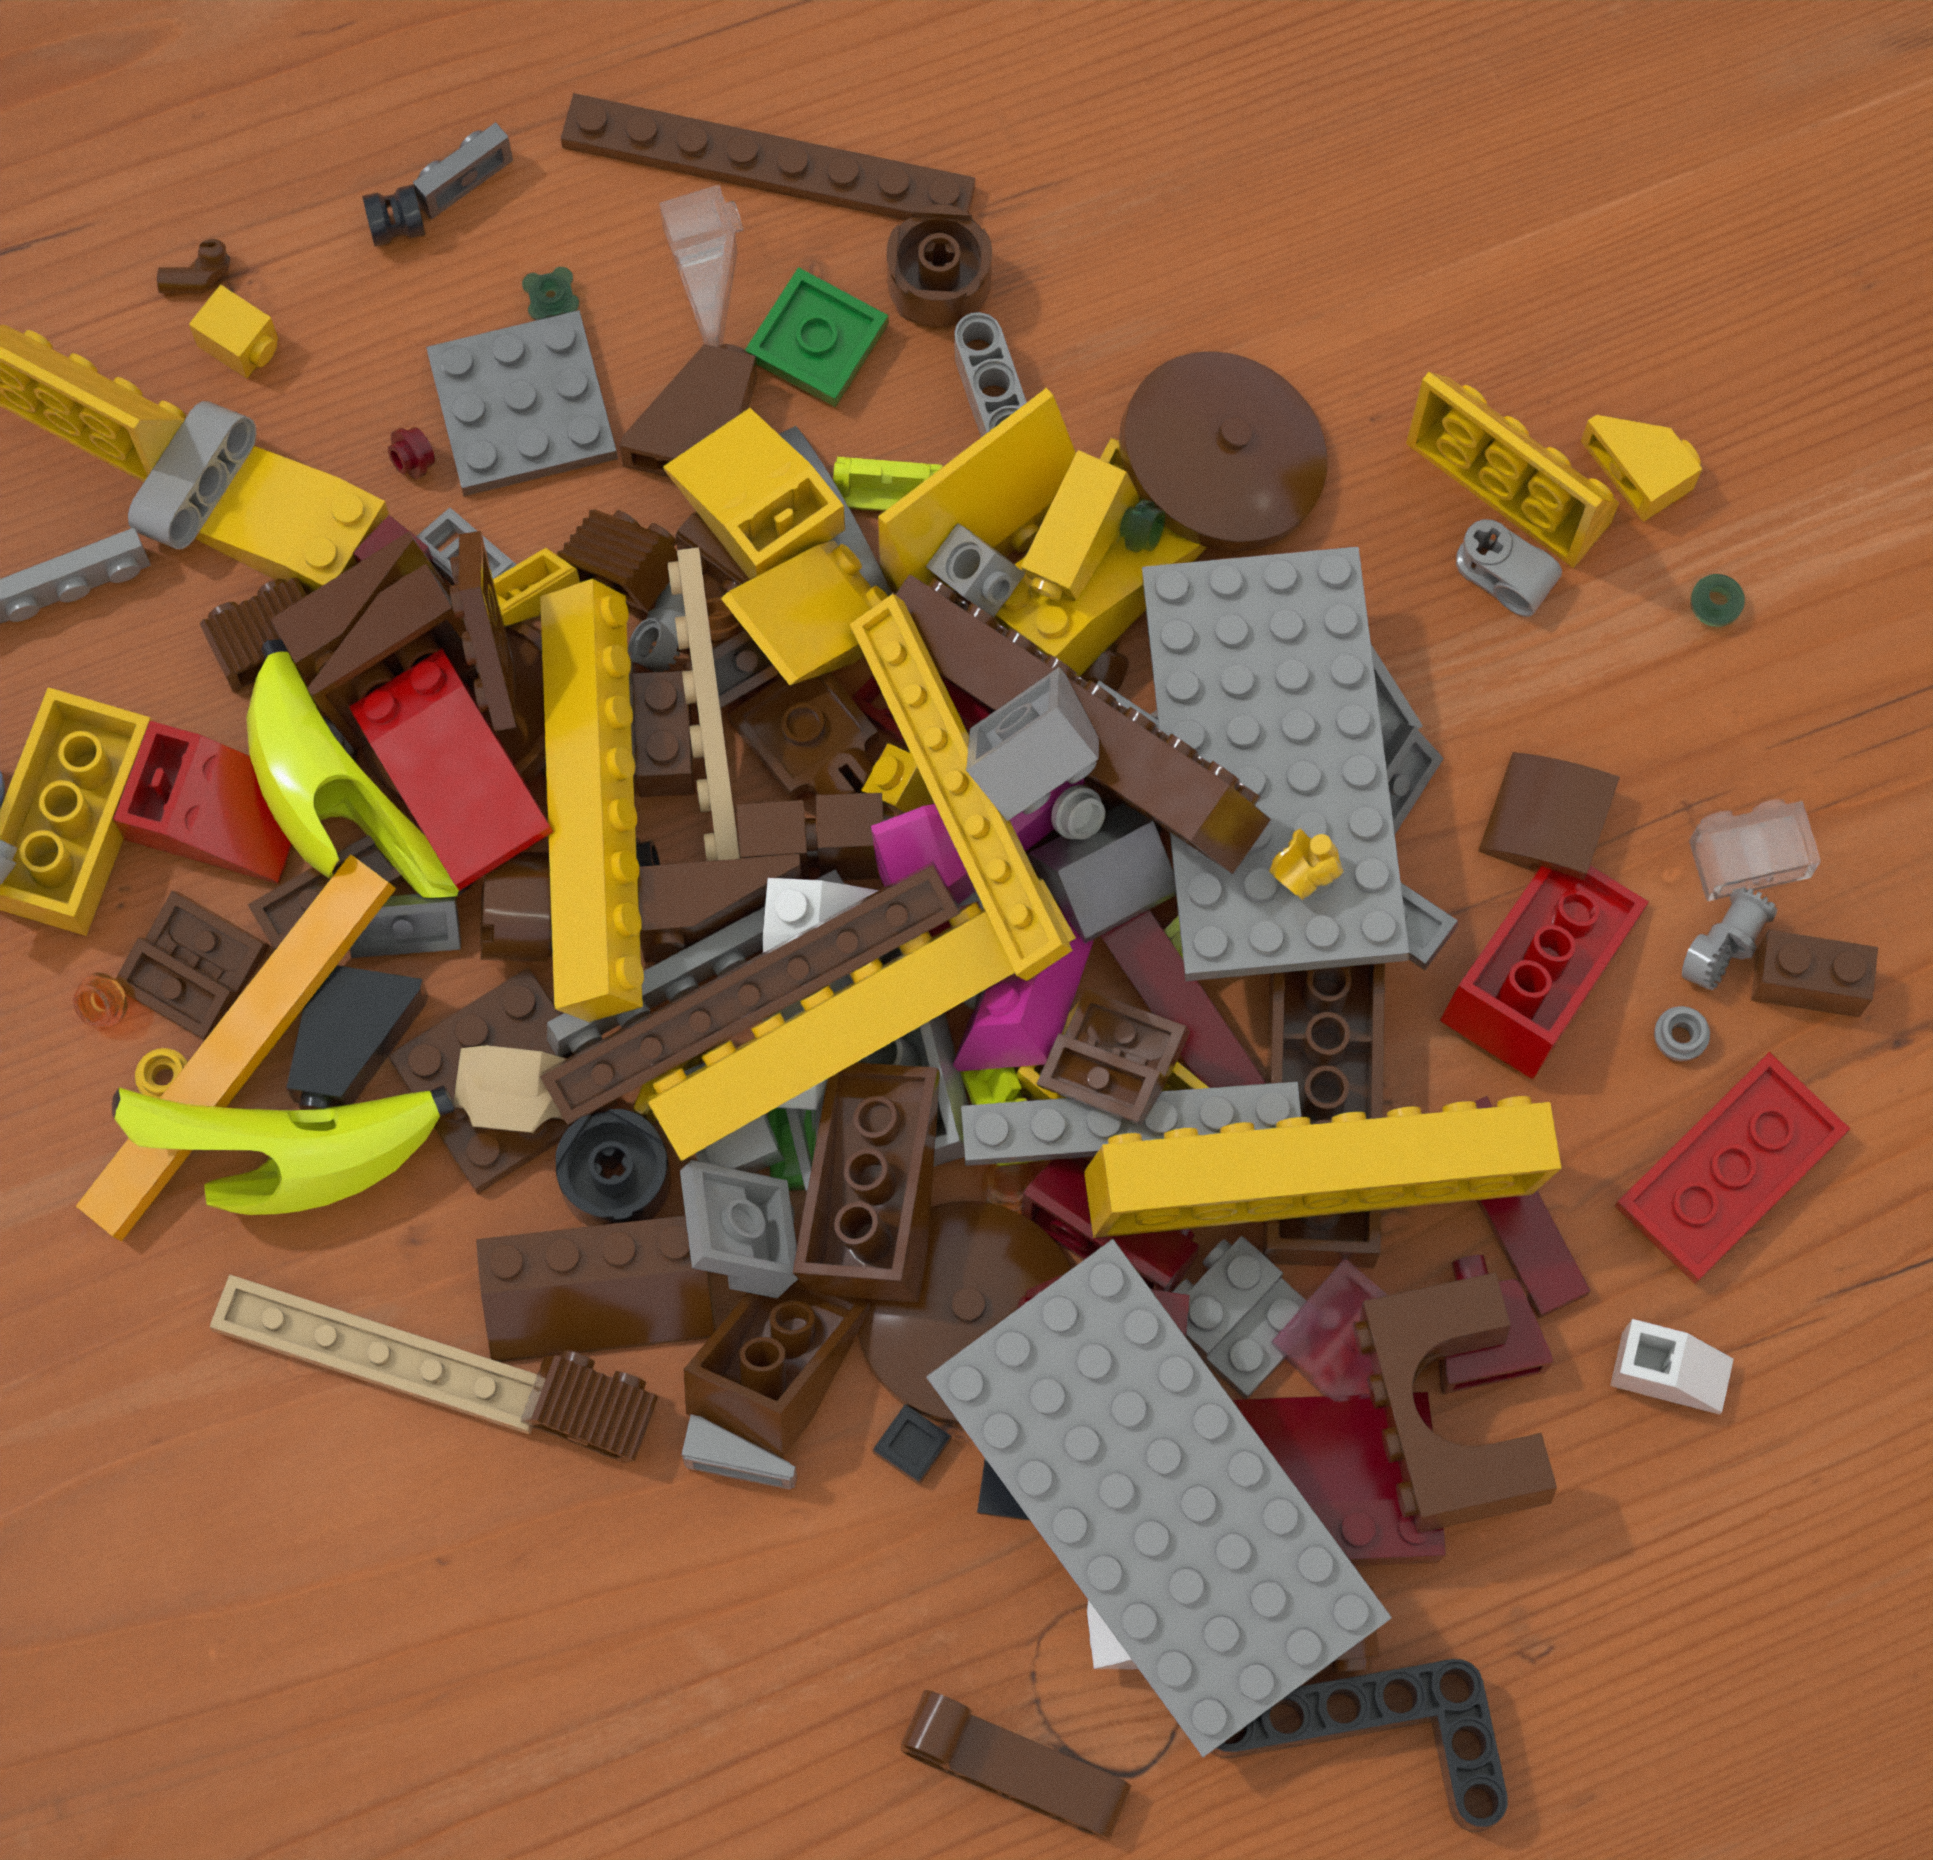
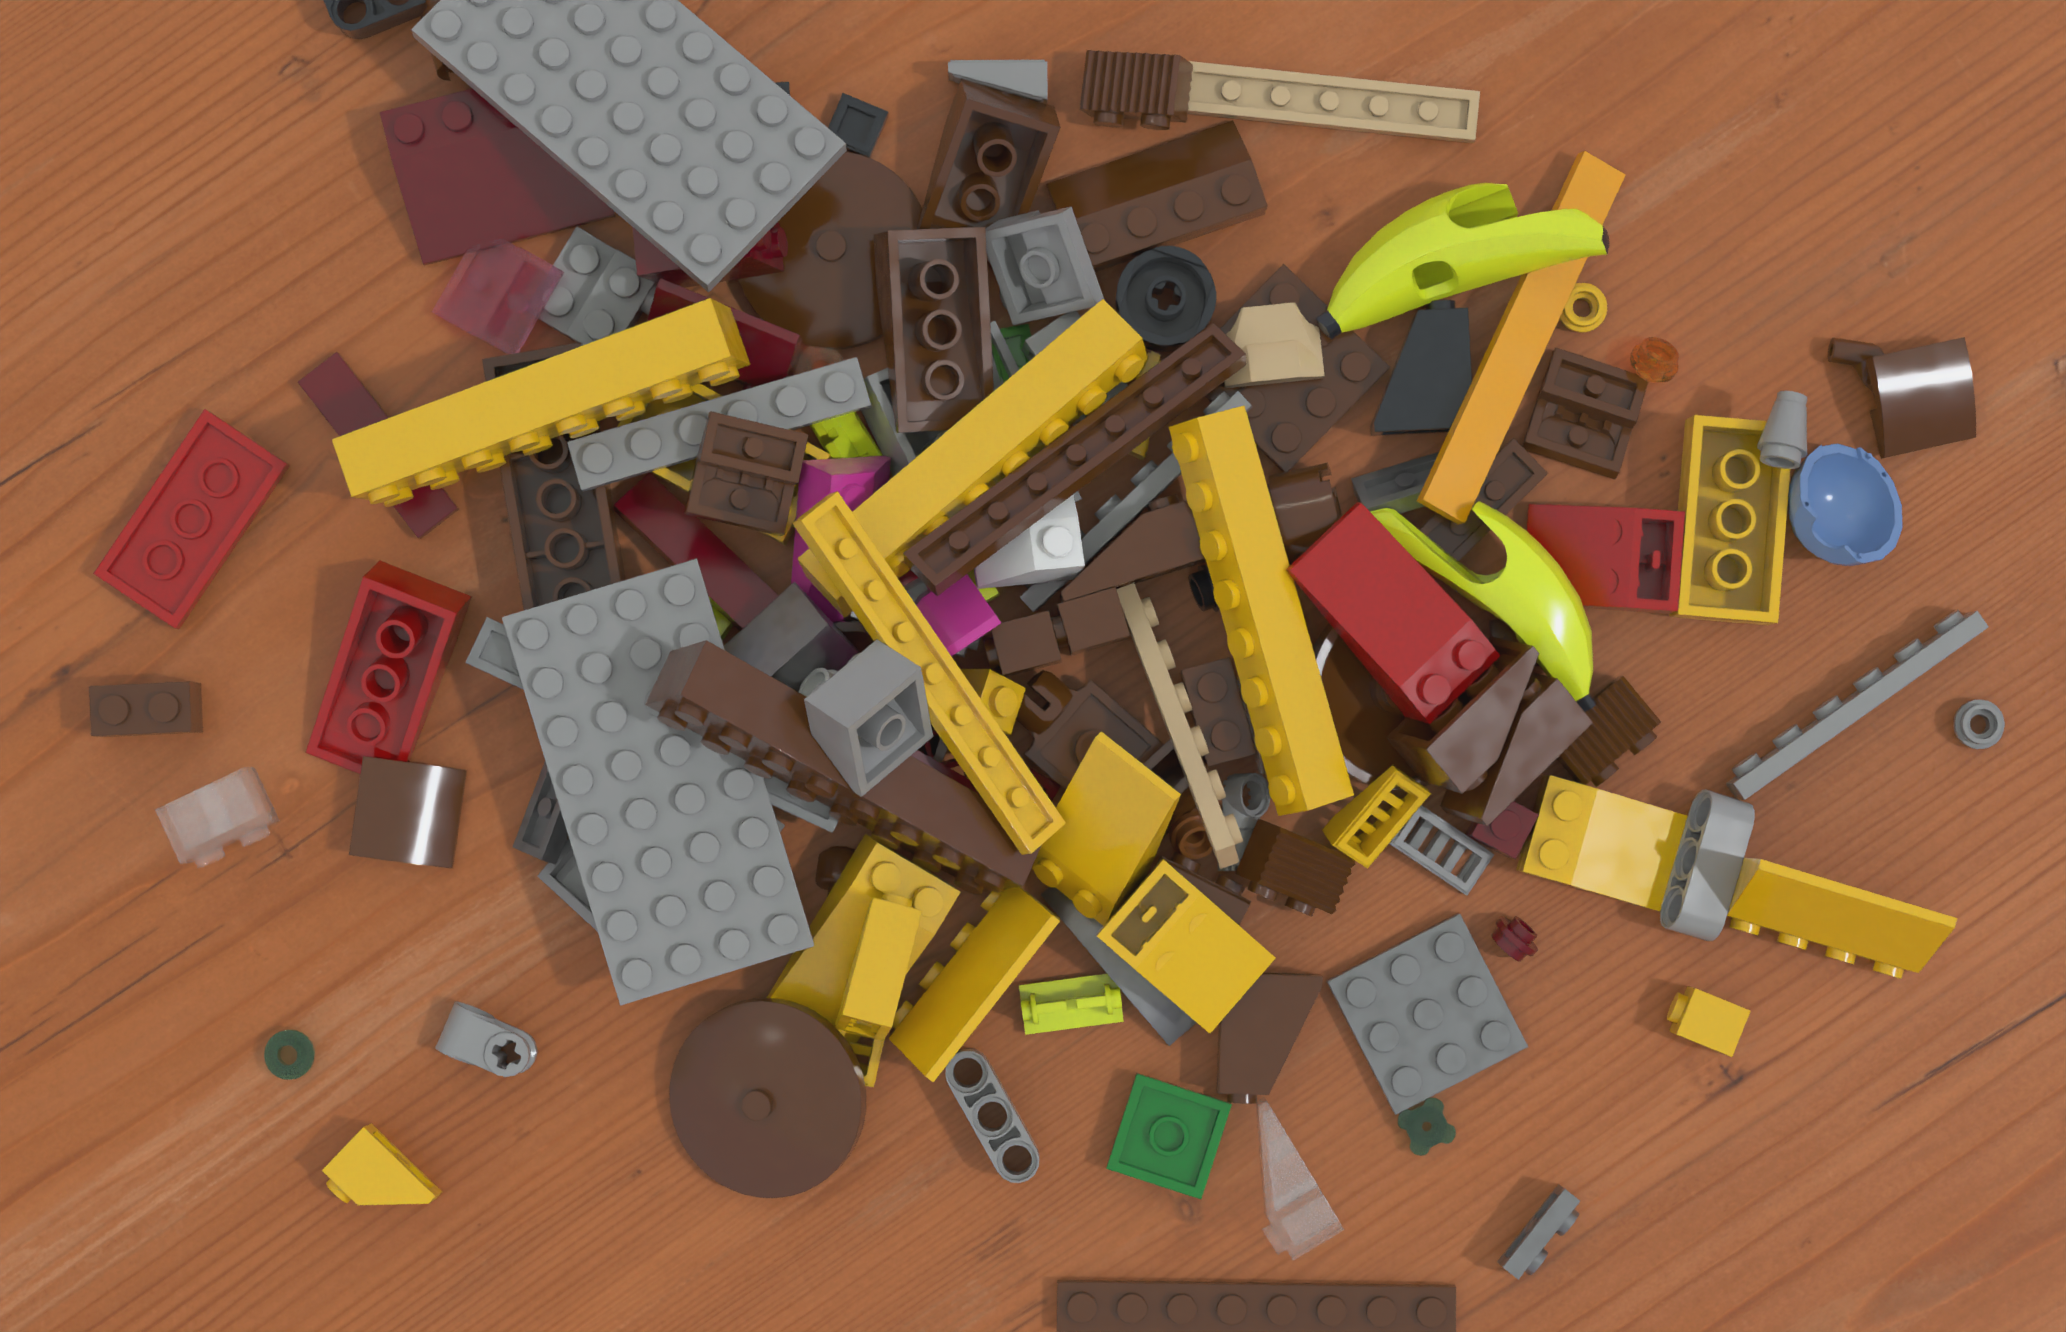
camera: 170 degrees right, 15 degrees up
(200, 275) = (1757, 1075): reddish brown arm -> none
(405, 212) = (1582, 1177): black wheel -> none
(486, 637) = (1390, 734): reddish brown plate -> none
(934, 238) = (1050, 1247): reddish brown brick -> none
(975, 570) = (982, 911): light grey brick -> none
(1142, 526) = (824, 995): clear green plate -> none
(1307, 863) = (604, 672): yellow arm -> none
(1441, 1479) = (394, 162): reddish brown arch -> none
(1509, 468) = (494, 1136): yellow slope -> none
(1520, 1357) = (381, 324): dark red torso -> none
(1671, 1367) = (216, 324): white slope -> none
(1689, 1020) = (242, 626): light grey plate -> none
(1730, 938) = (223, 733): light grey connector -> none

